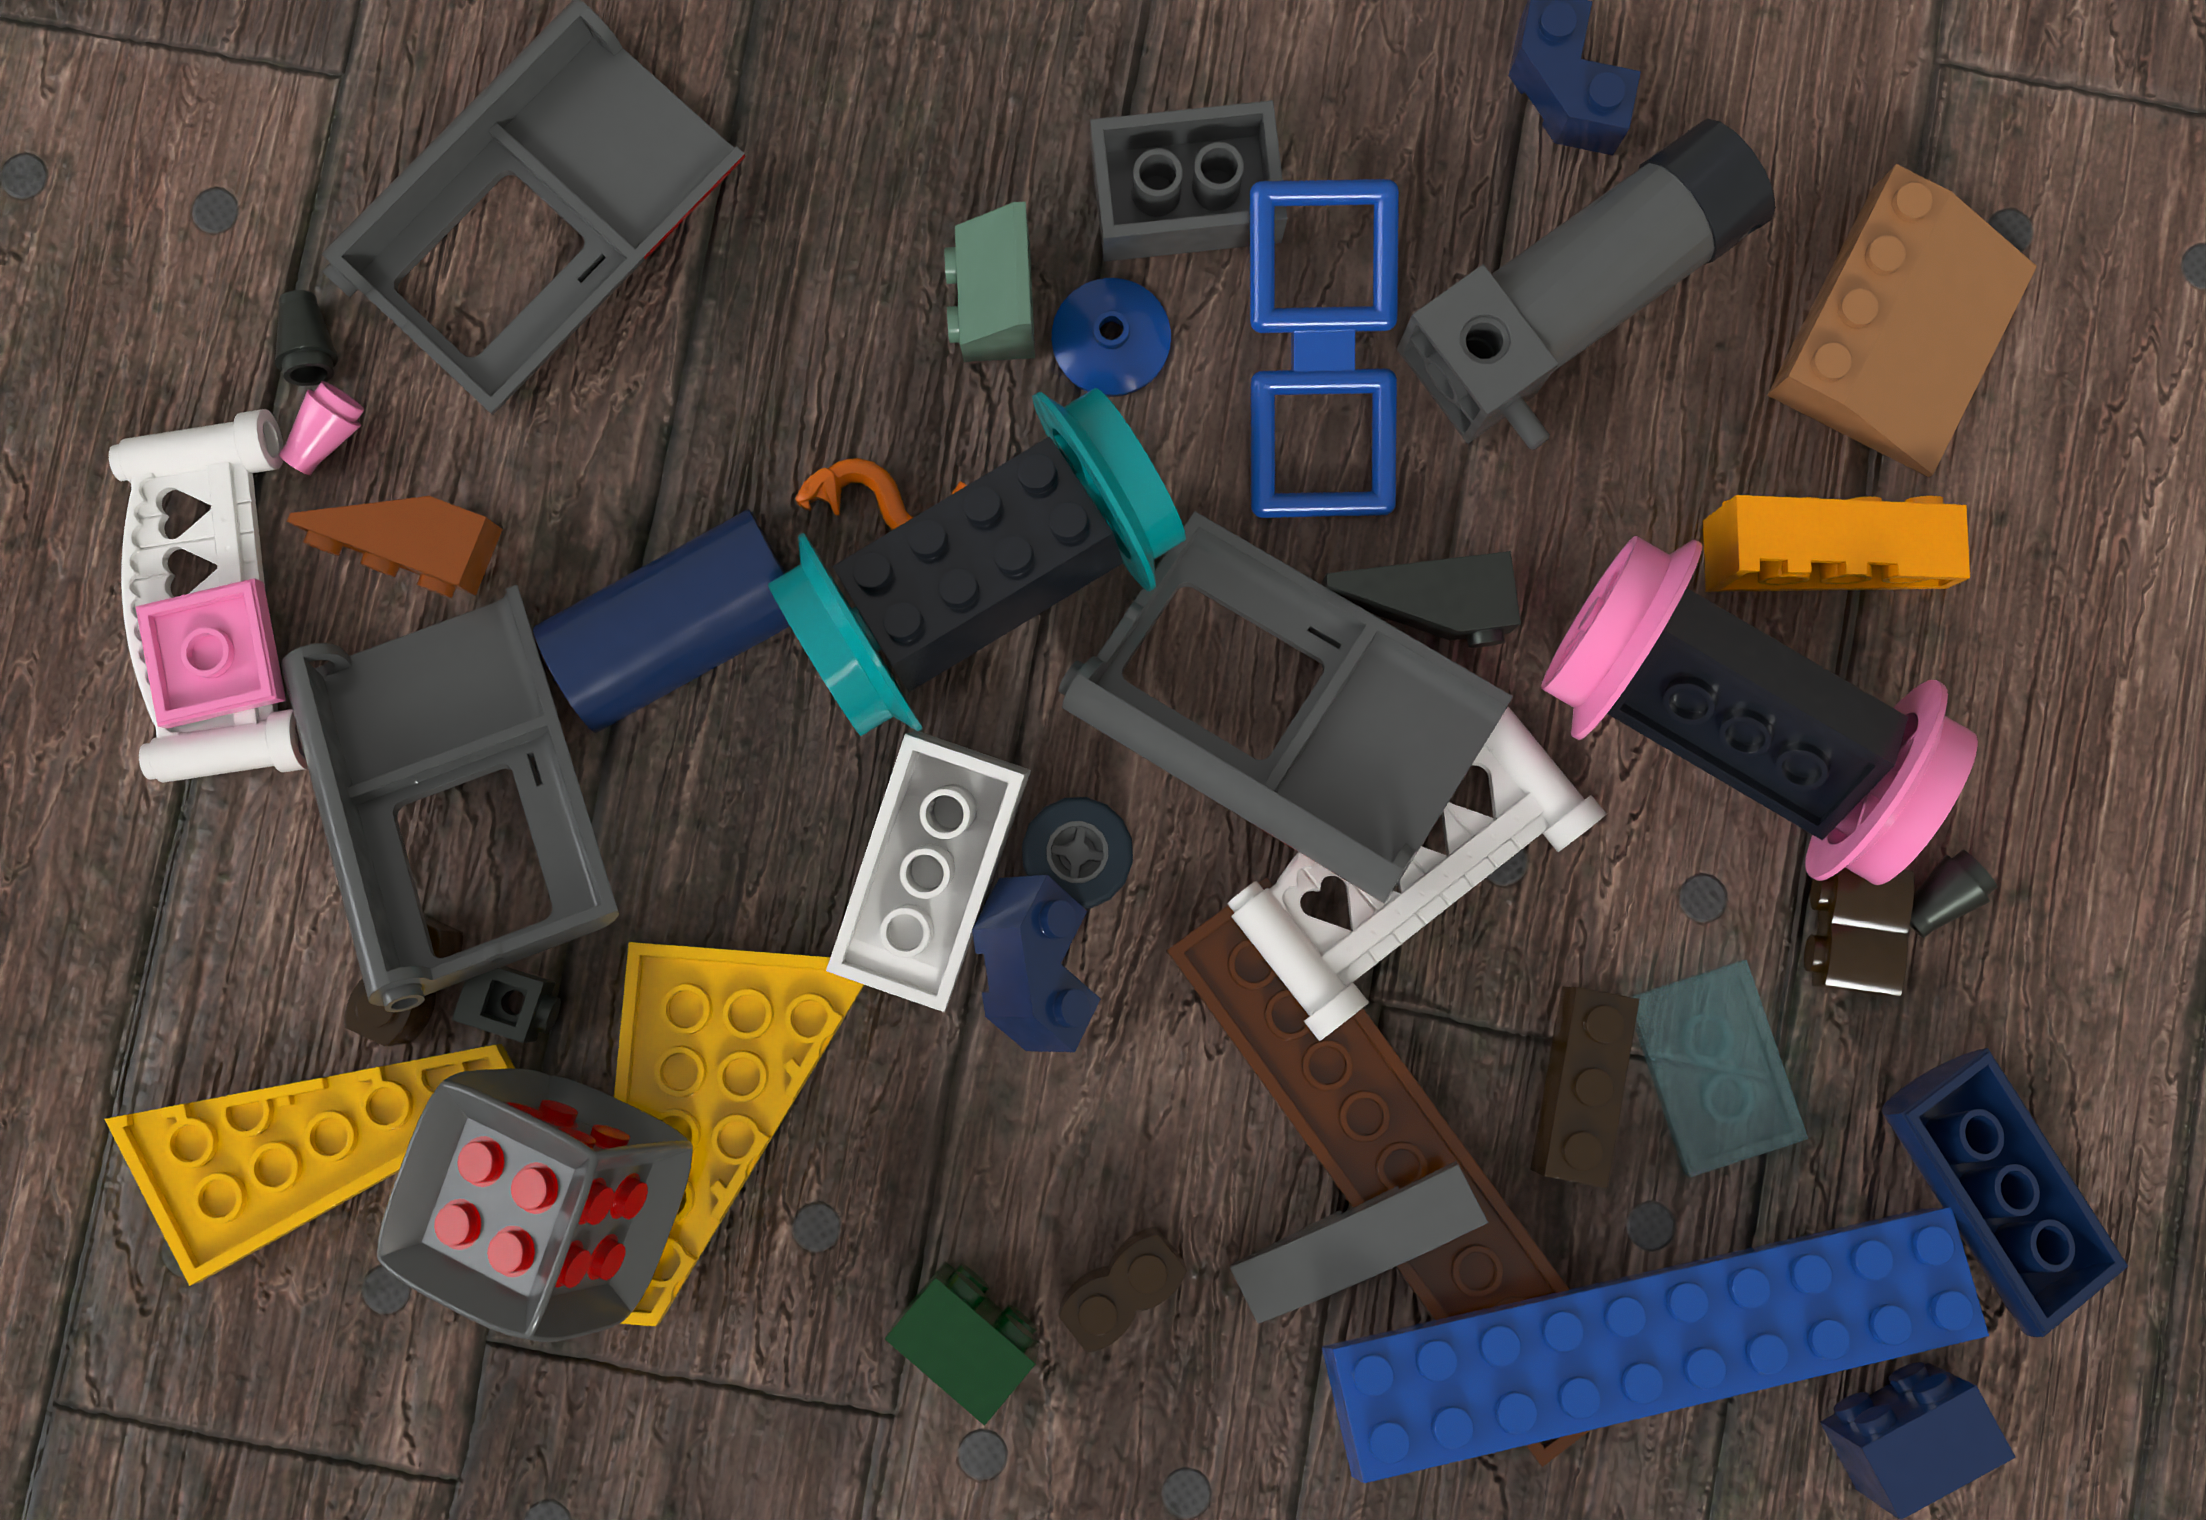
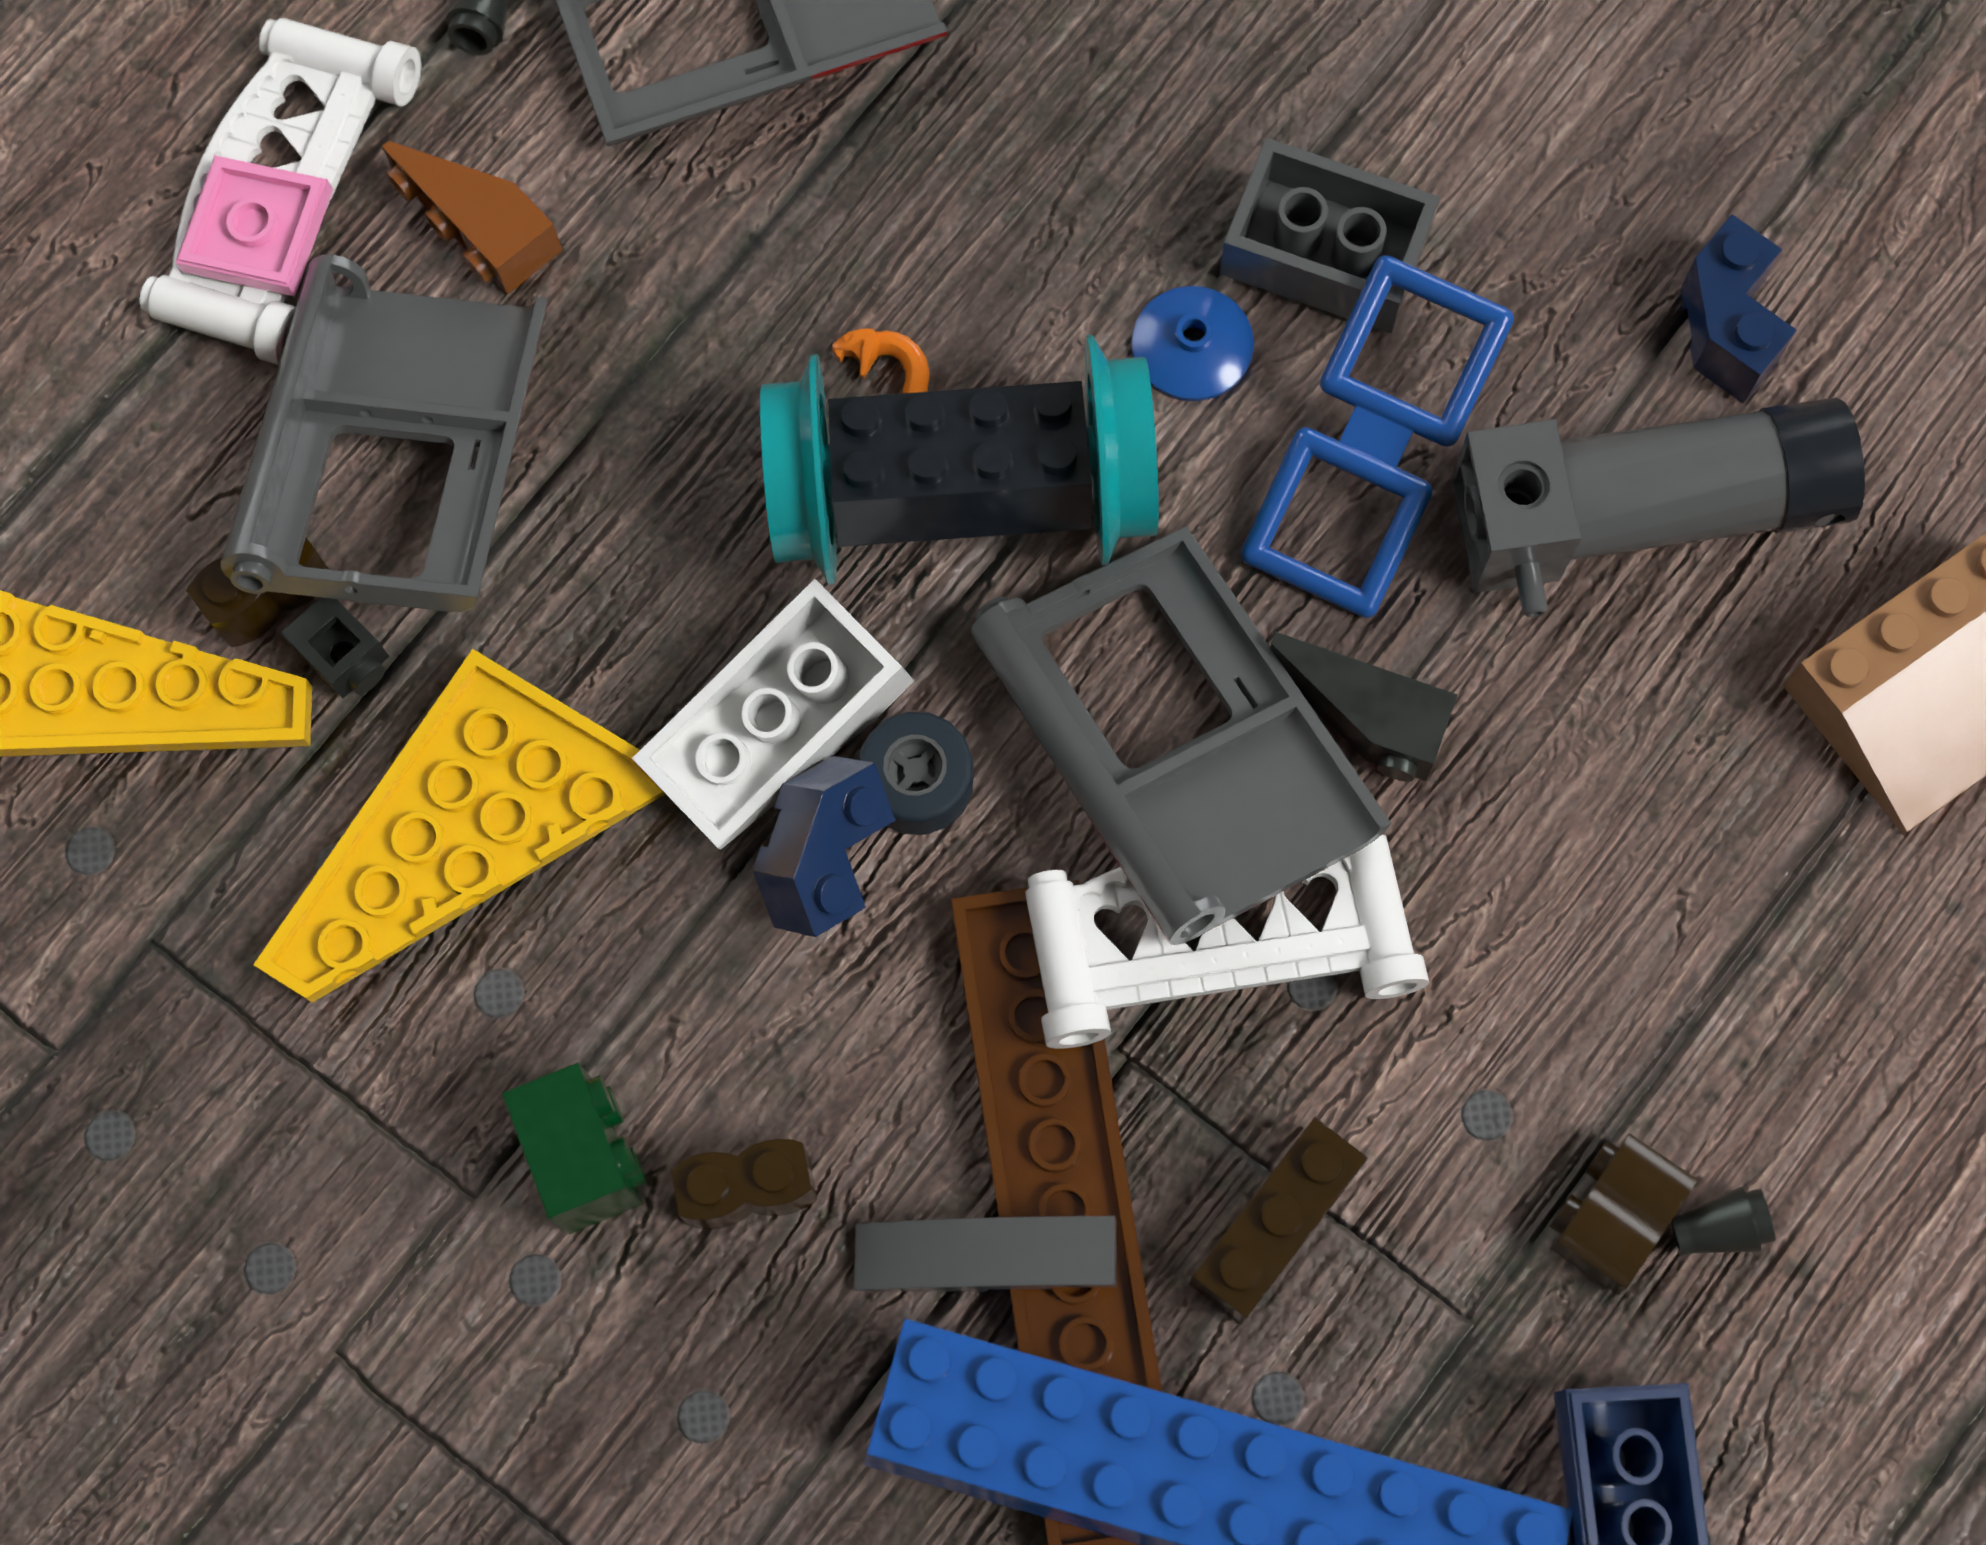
camera: 30 degrees right, 10 degrees down
(320, 427) = (456, 87): bright pink cone -> none
(533, 1203) = (263, 814): dark grey piece -> none
(665, 623) = (655, 394): dark blue brick -> none
(993, 286) = (1107, 244): sand green slope -> none
(1717, 1069) = (1416, 1278): clear light blue tile -> none
(1762, 715) = (1607, 937): brick -> none
(1835, 544) = (1774, 842): light orange wedge -> none

